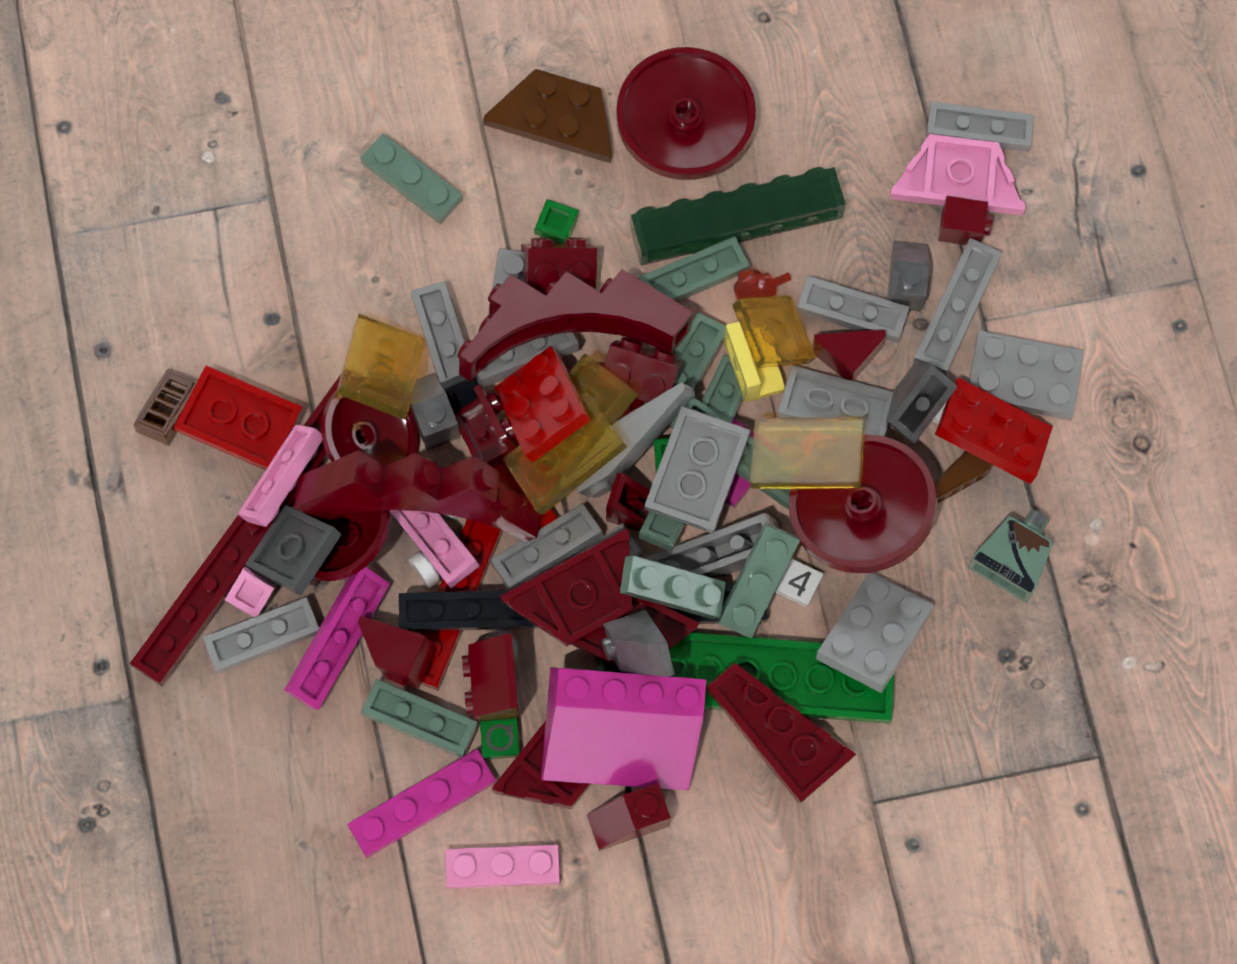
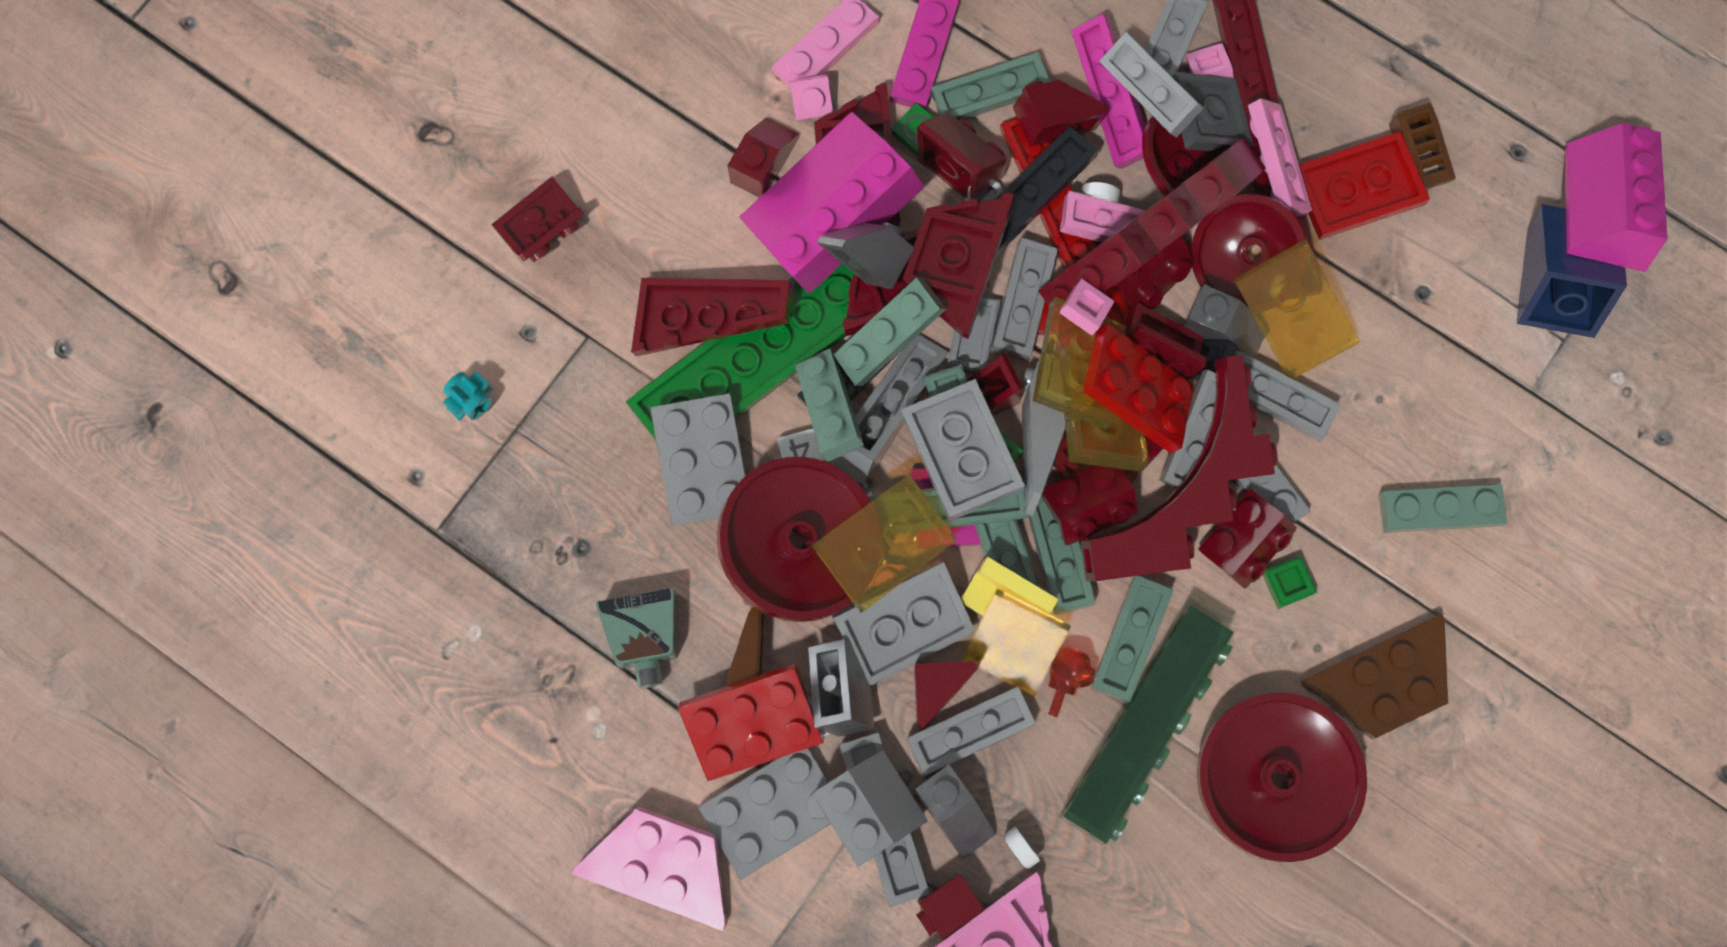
camera: 140 degrees right, 5 degrees up
(93, 249) = (1616, 196): none -> dark pink slope
(166, 239) = (1561, 288): none -> dark blue slope
(320, 596) = (1151, 84): none -> light grey plate
(526, 480) = (1086, 307): none -> bright pink plate
(554, 829) = (811, 97): none -> bright pink plate
(839, 912) = (538, 220): none -> dark red bracket
(886, 216) = (1021, 848): none -> white tile
(965, 311) = (869, 807): none -> light grey slope
(1000, 824) = (467, 395): none -> teal gear
(1128, 403) = (661, 865): none -> bright pink wing

